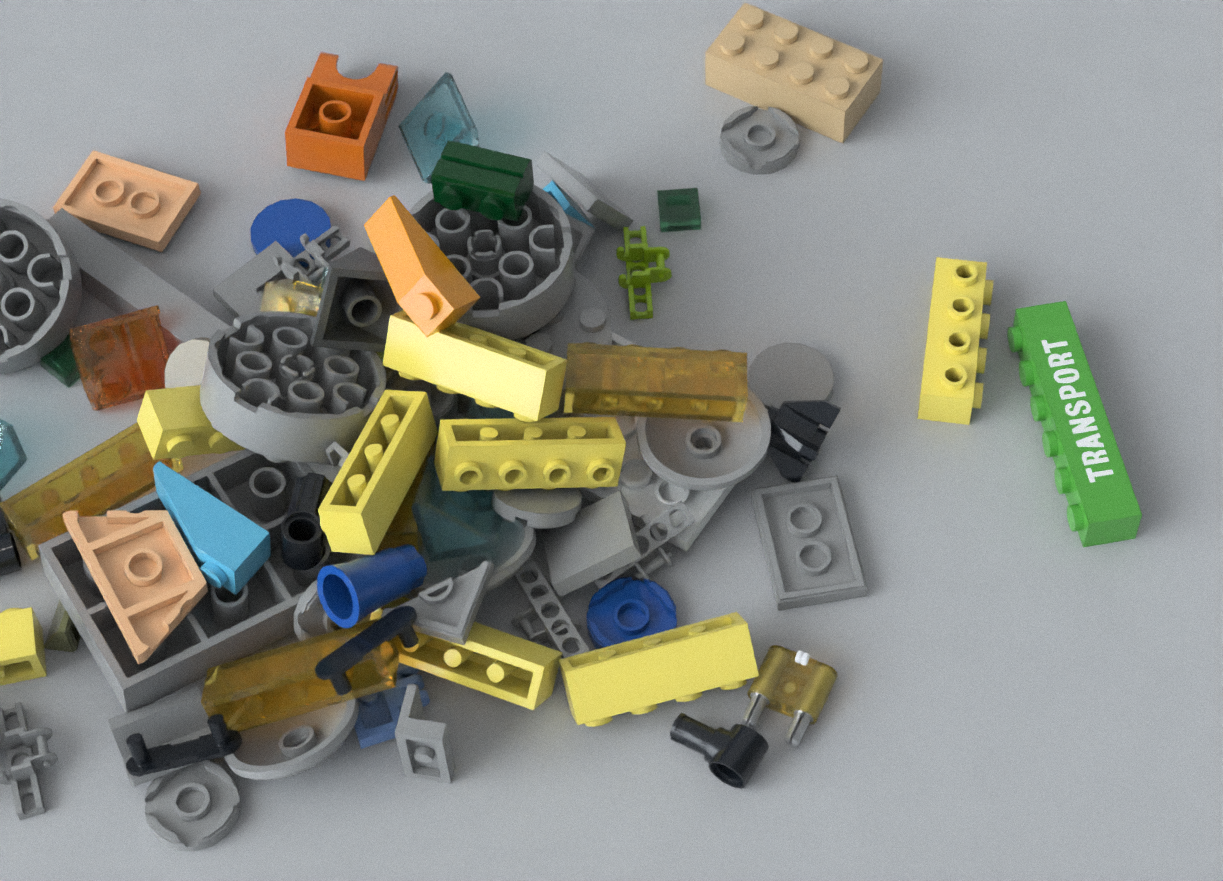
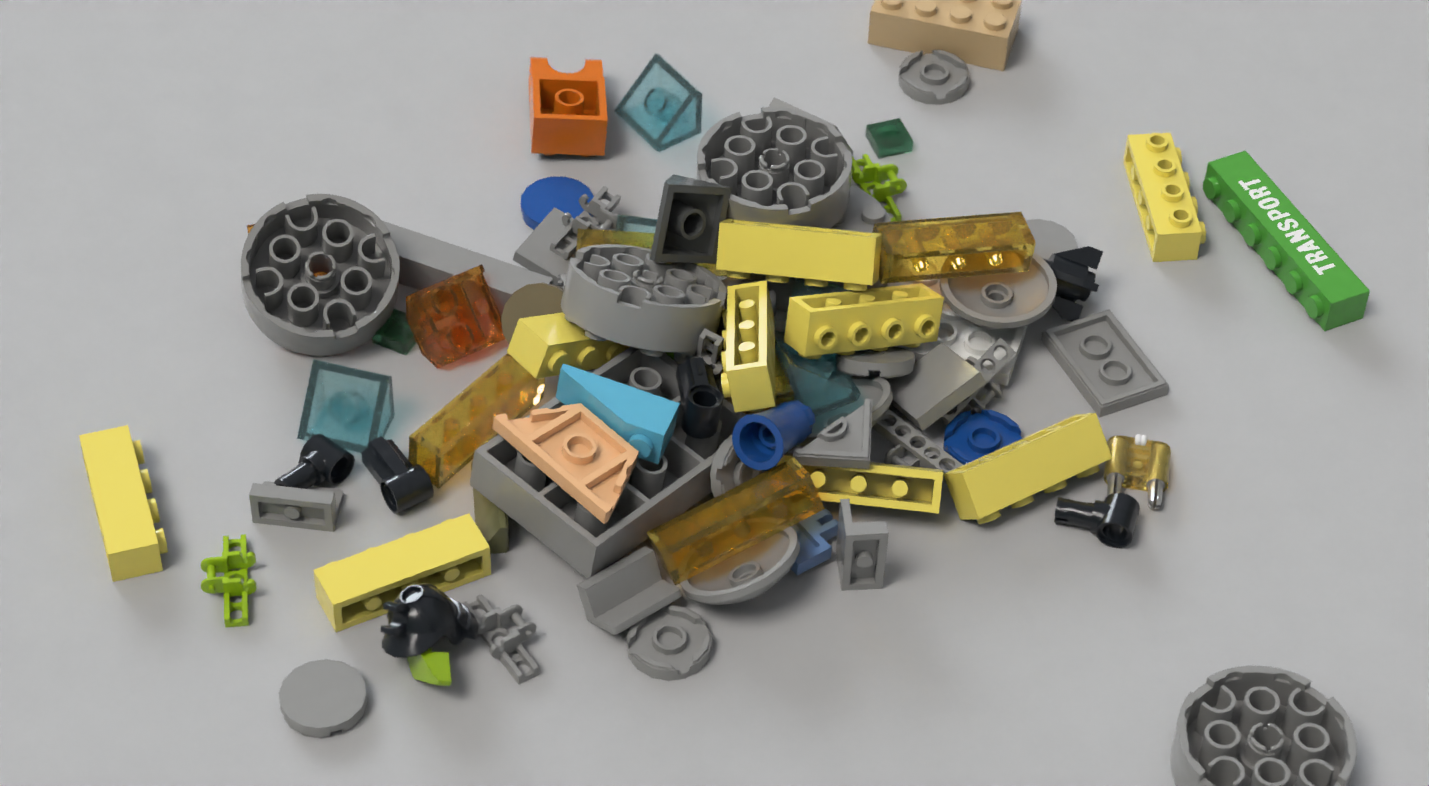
camera: 20 degrees left, 10 degrees down
(128, 200) = (404, 197): light nougat plate -> none
(168, 756) = (670, 591): black piece -> none
(394, 623) = (790, 477): black piece -> none
(417, 269) = (738, 175): light orange slope -> none
(482, 181) = (759, 108): dark green brick -> none

